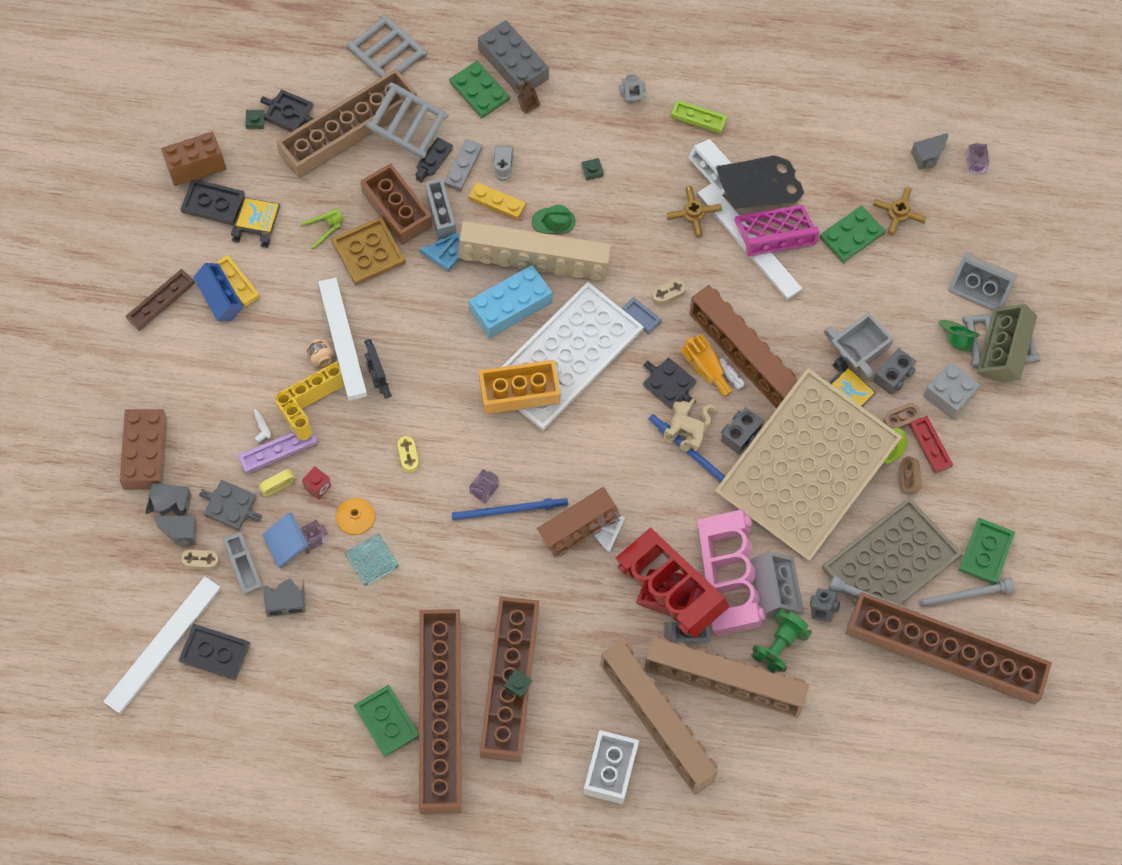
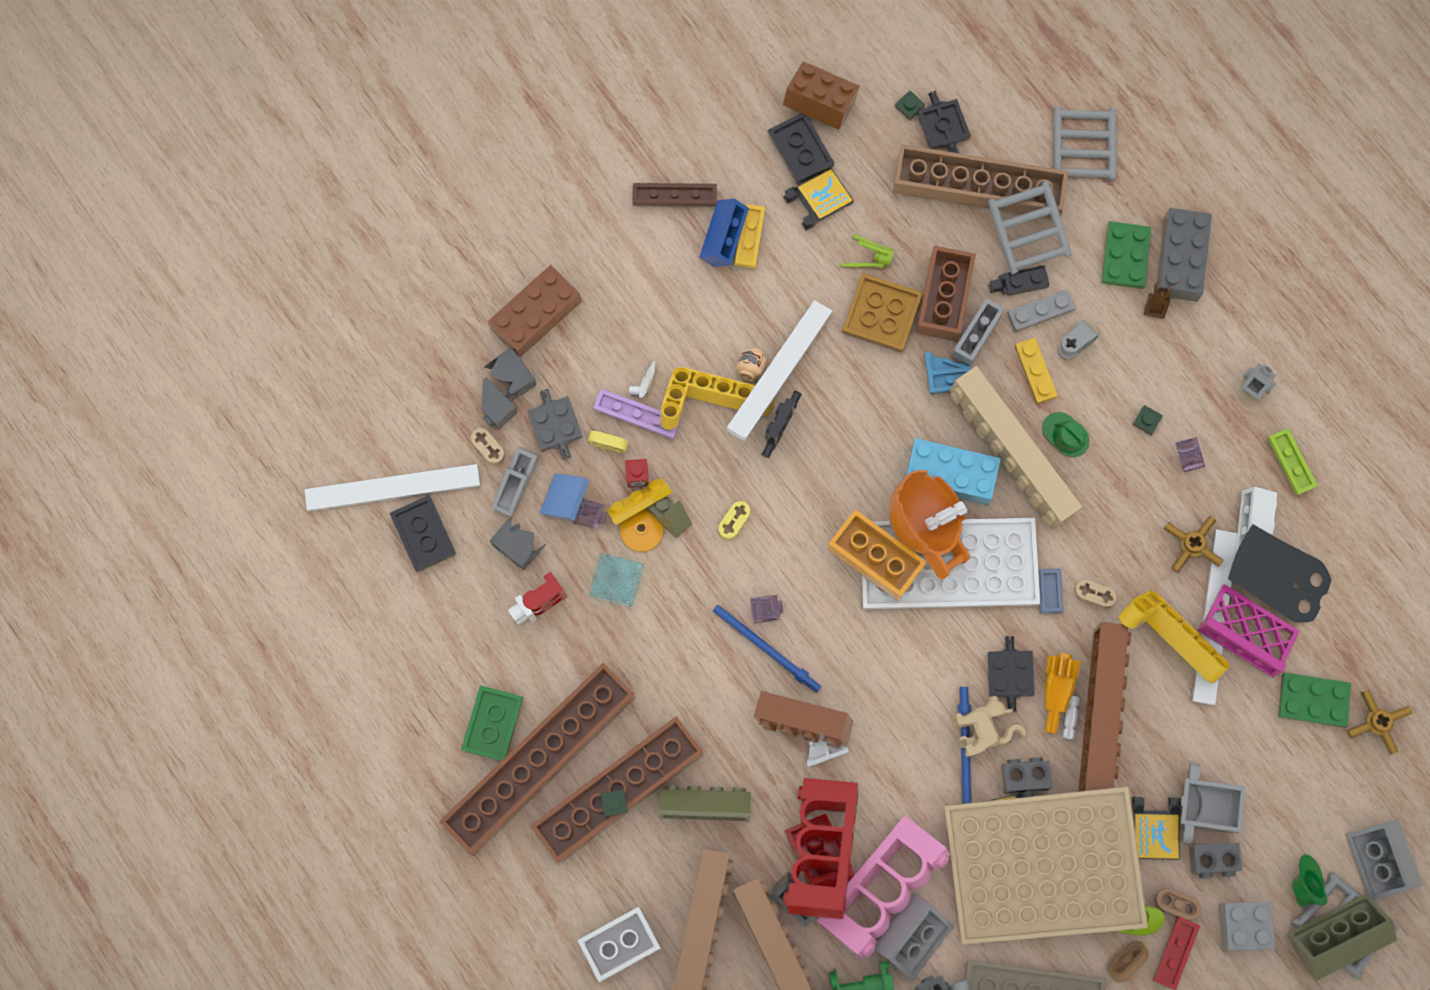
camera: 50 degrees right, 10 degrees up
(335, 498) = (638, 500): none -> yellow plate
(336, 615) = (537, 601): none -> red hips
(366, 489) = (670, 515): none -> olive slope
(529, 337) = (913, 502): none -> orange windscreen
(536, 325) = (946, 516): none -> white axle
(573, 633) = (704, 804): none -> olive slope
(638, 163) = (1190, 454): none -> clear purple brick
(739, 267) = (1177, 632): none -> yellow beam

